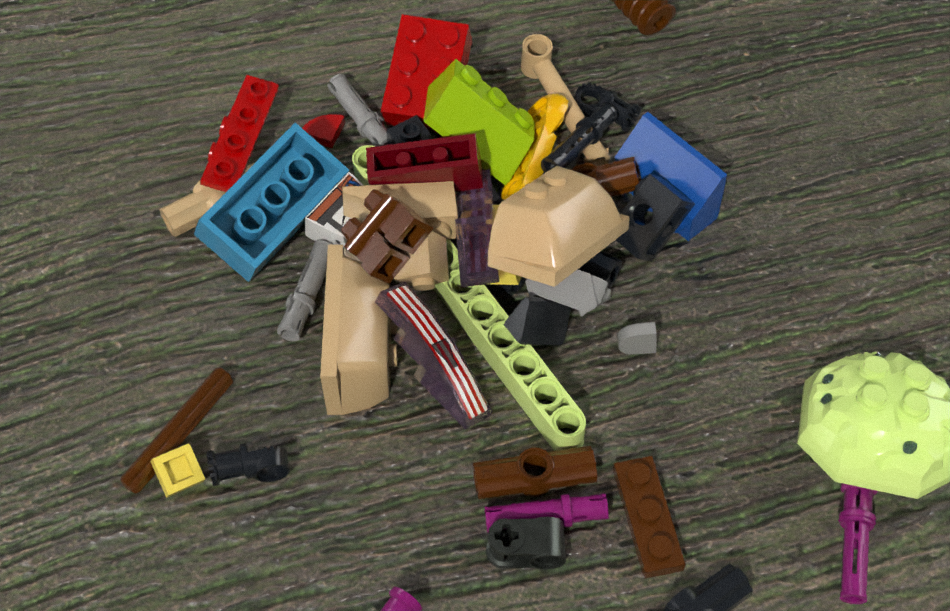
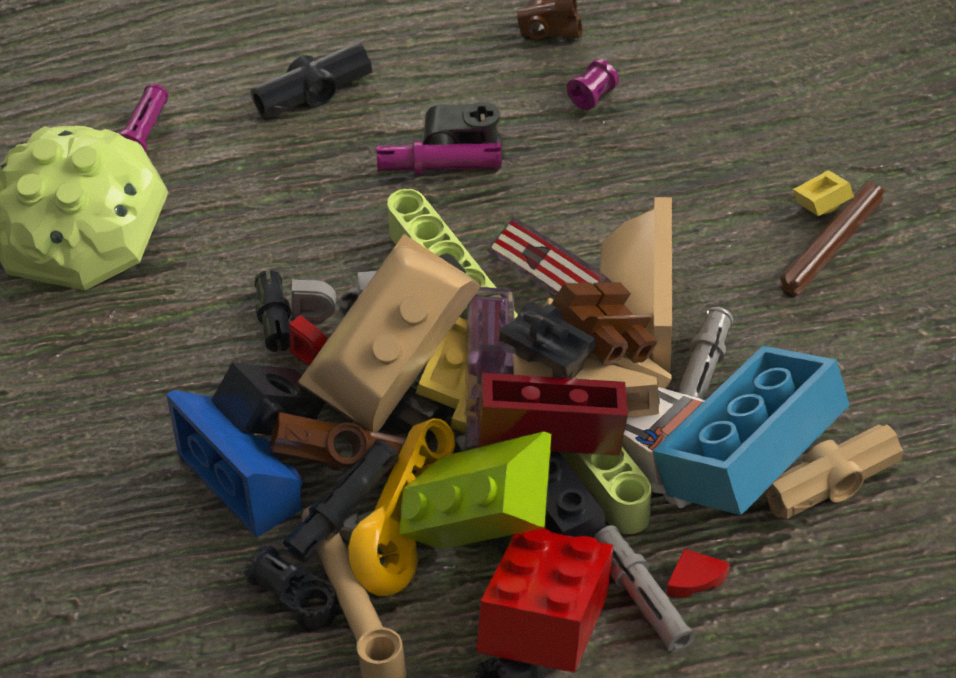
camera: 175 degrees left, 10 degrees down
(239, 133) = (811, 528): red bracket -> none
(258, 464) = (749, 198): black connector -> none
(427, 192) = (546, 338): none -> black hips
(510, 474) = (450, 182): reddish brown piece -> none
(632, 297) = (305, 340): none -> red tile
(648, 517) = (336, 161): reddish brown plate -> none
(670, 336) = (273, 310): none -> black pin

